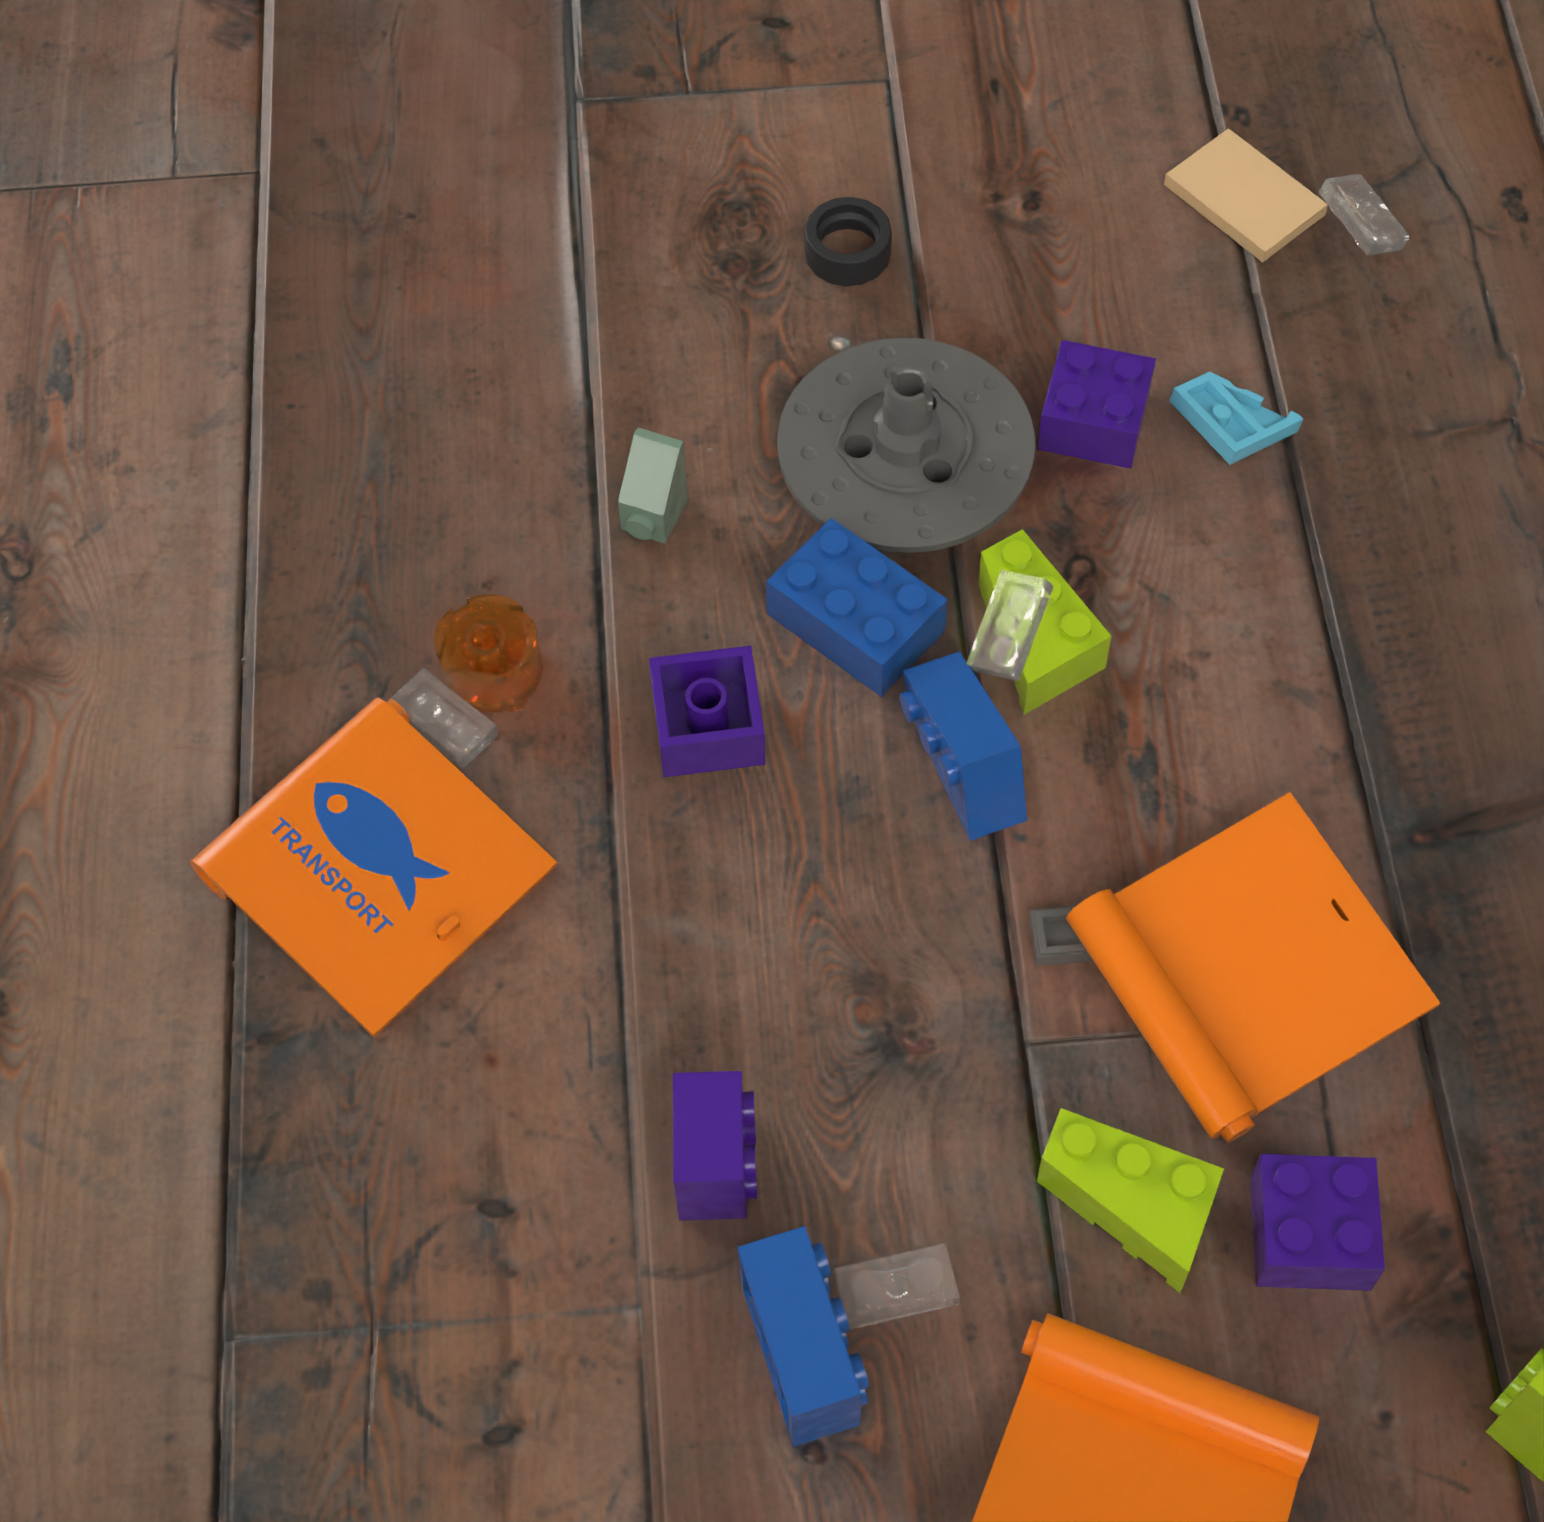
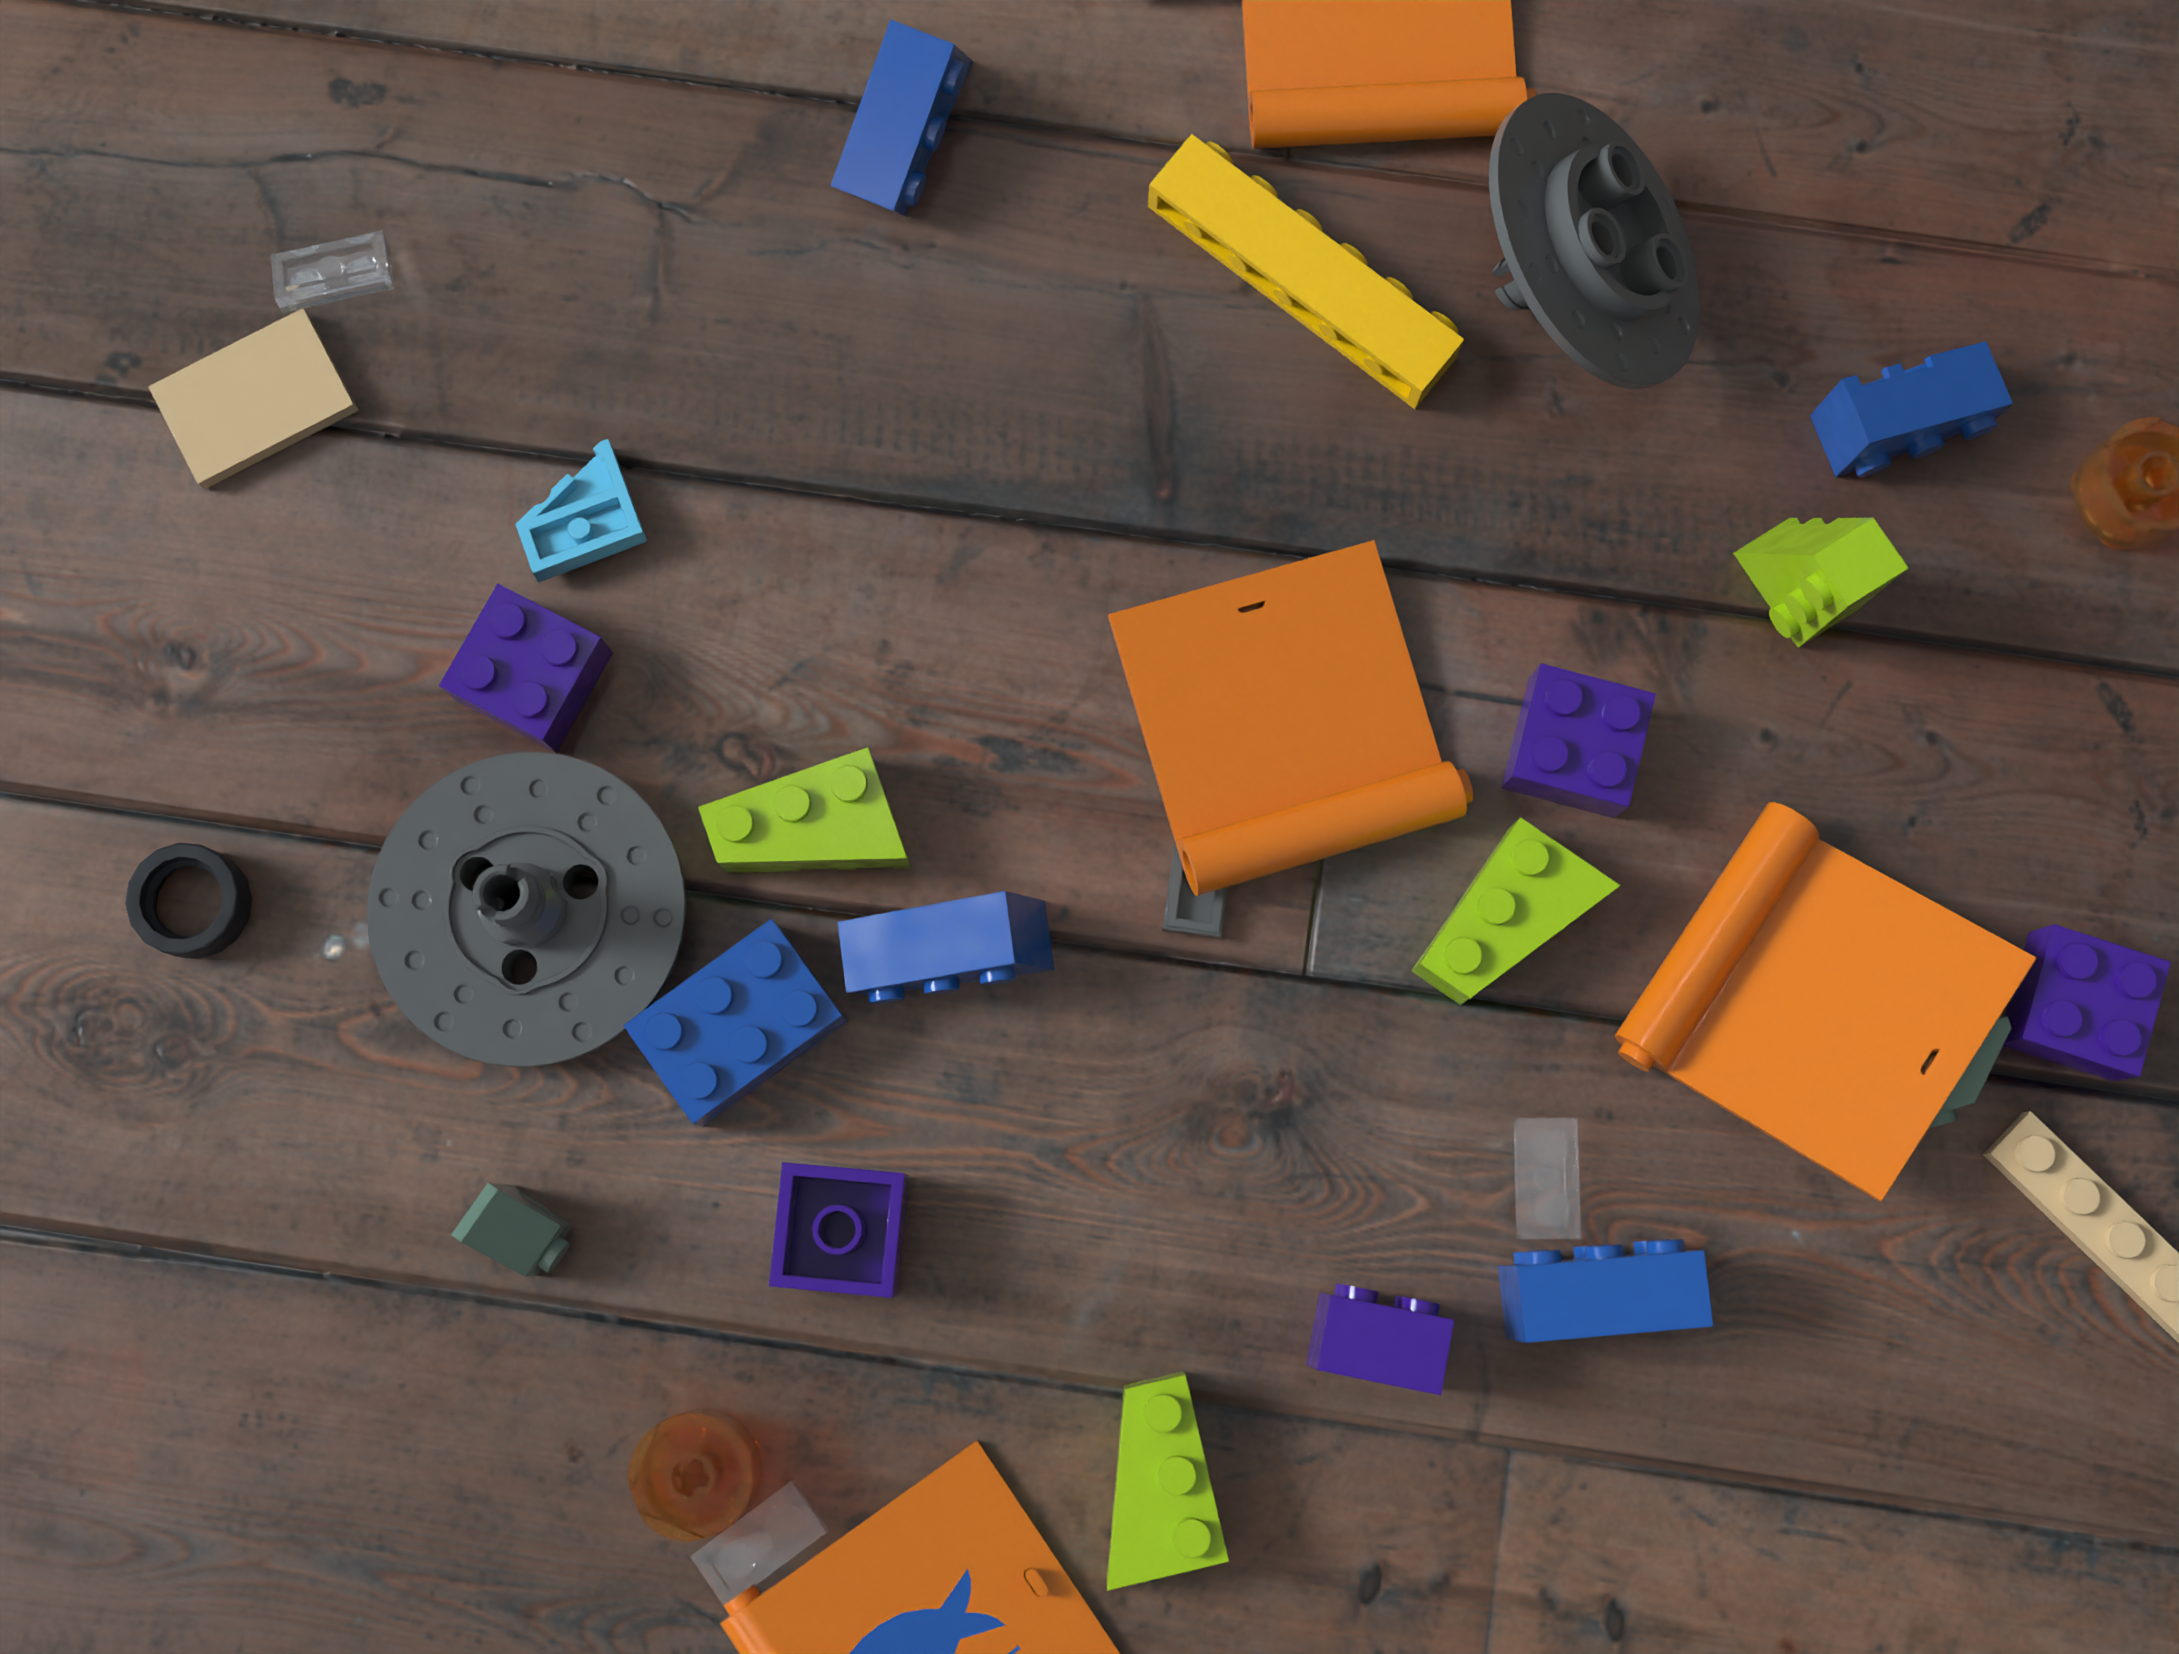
camera: 80 degrees left, 20 degrees up
(550, 1002) = (1163, 1490): none -> lime wedge
(1010, 625) = (837, 858): clear plate -> none

